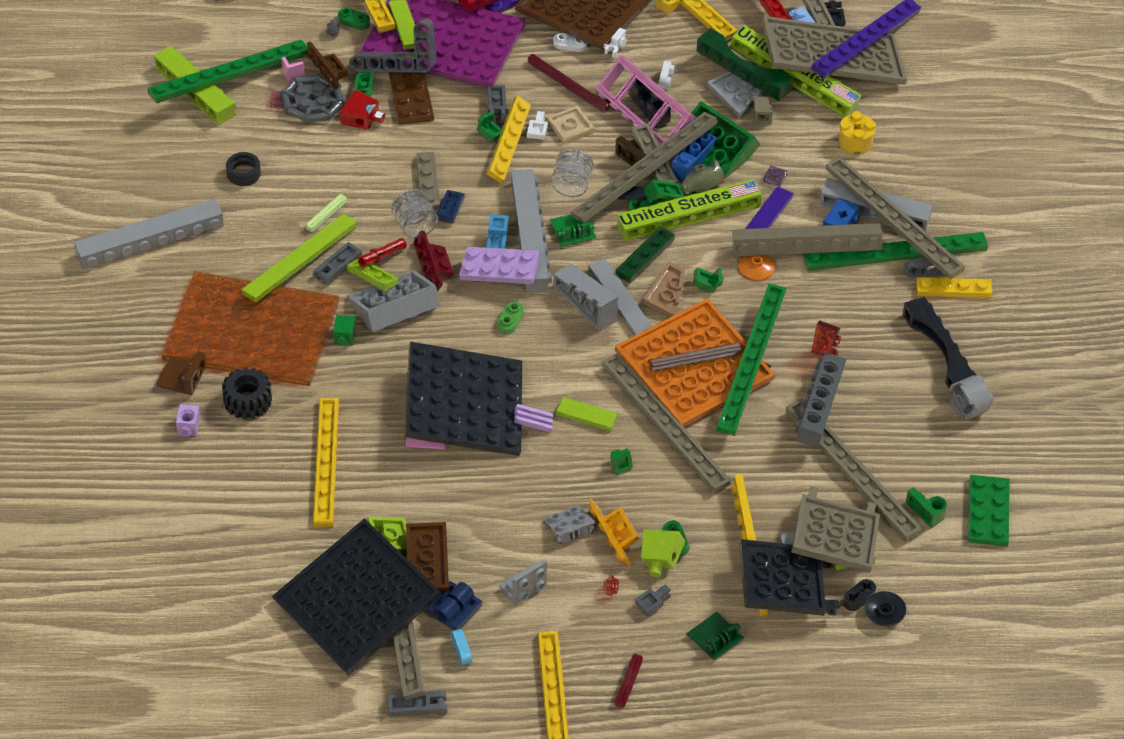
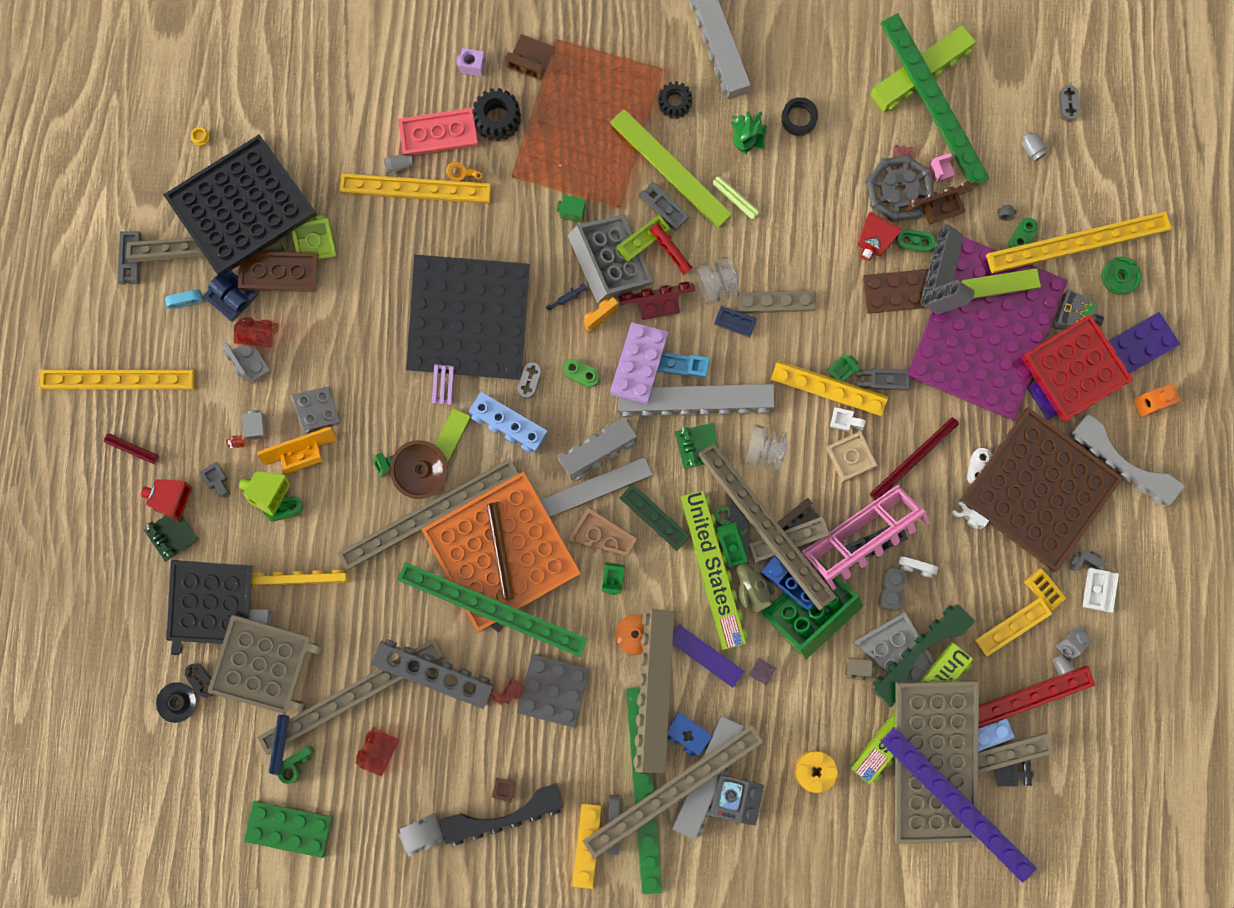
camera: 100 degrees right, 30 degrees up
(224, 252) = (680, 90): none -> black tyre
(262, 199) = (748, 132): none -> green hair
(265, 444) = (437, 132): none -> coral plate
(269, 10) = (1034, 146): none -> light grey brick
(274, 653) = (200, 136): none -> yellow plate
(301, 477) = (397, 163): none -> light grey cone
(307, 423) = (462, 172): none -> light orange plate
(431, 326) = (569, 296): none -> dark blue piece
(453, 299) = (594, 319): none -> light orange plate
(493, 576) = (255, 332): none -> clear red bracket
(523, 353) = (525, 379): none -> light grey beam
(567, 365) = (508, 422): none -> light blue brick
(592, 570) = (254, 425): none -> light grey brick
(626, 418) = (406, 469): none -> reddish brown dish
(678, 635) = (167, 497): none -> red torso
(689, 90) = (891, 595): none -> dark grey brick
(810, 309) = (553, 691): none -> dark grey plate
(892, 177) = (737, 800): none -> dark grey slope
(900, 446) = (376, 751): none -> clear red bracket
(910, 511) = (278, 744): none -> dark blue axle
(917, 347) = (503, 789): none -> reddish brown plate

